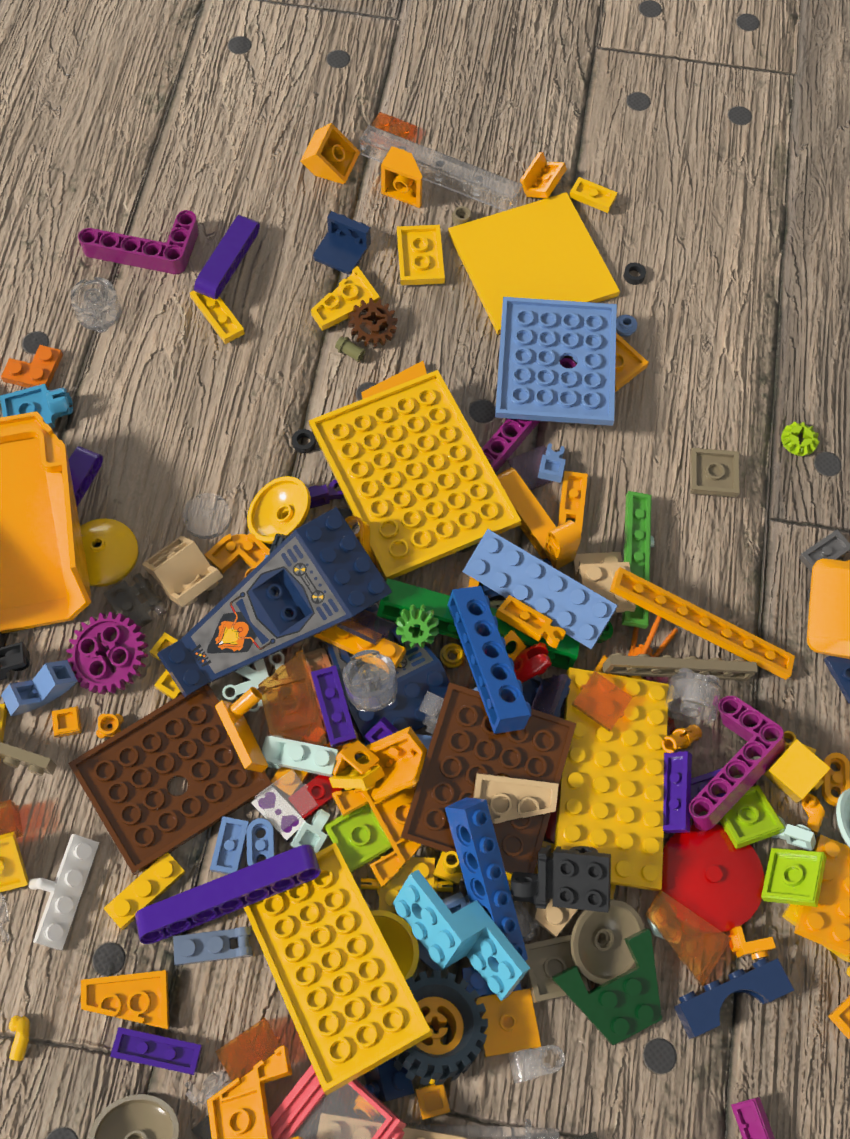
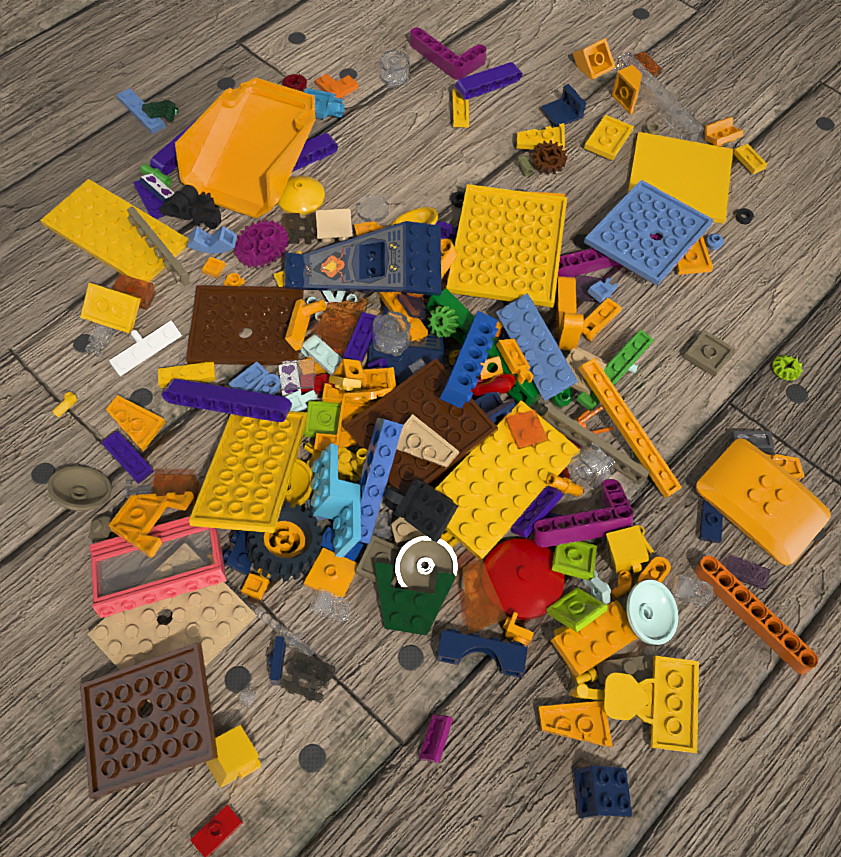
camera: 35 degrees right, 5 degrees down
(211, 946) = (198, 425): sand blue plate -> none

